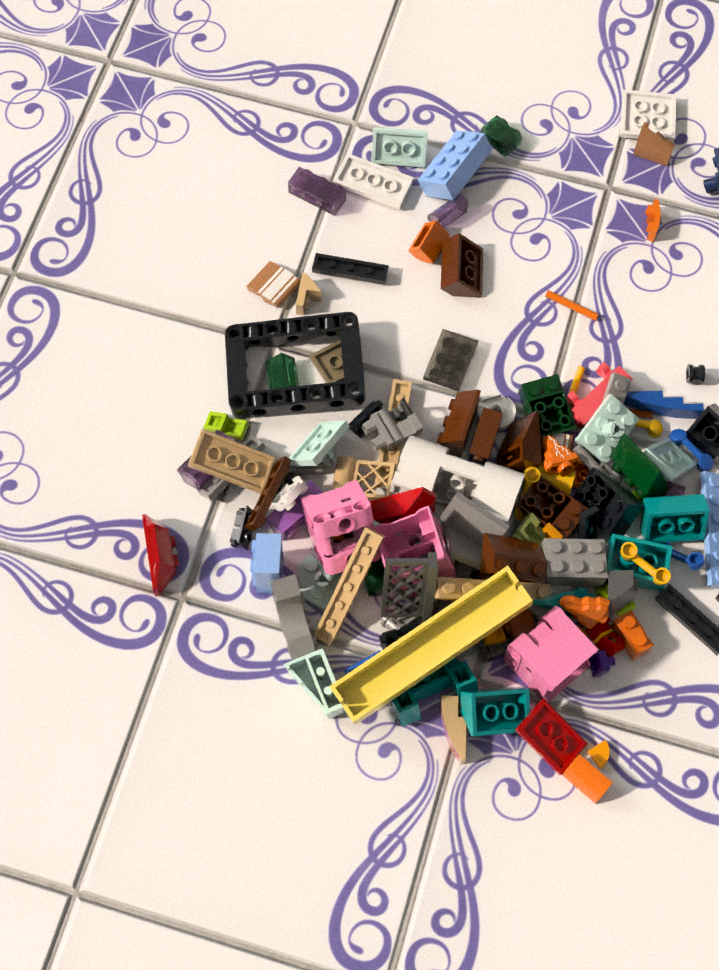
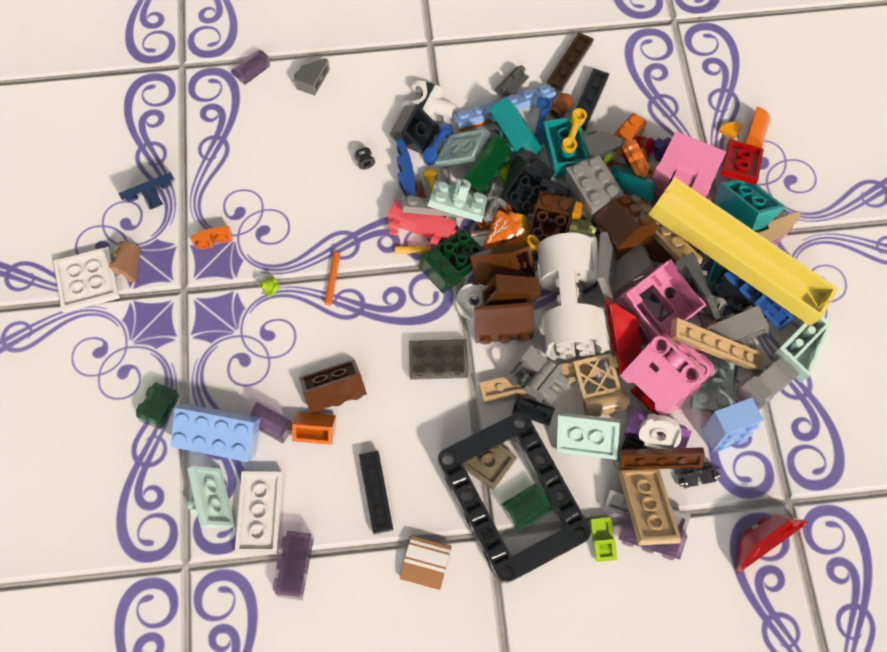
camera: 110 degrees left, 0 degrees up
(307, 291) = (419, 525): tan slope -> none
(362, 628) = (742, 326): none -> light grey wedge
(583, 251) = (270, 286): none -> lime plant
(694, 585) = (561, 105): none -> dark orange brick

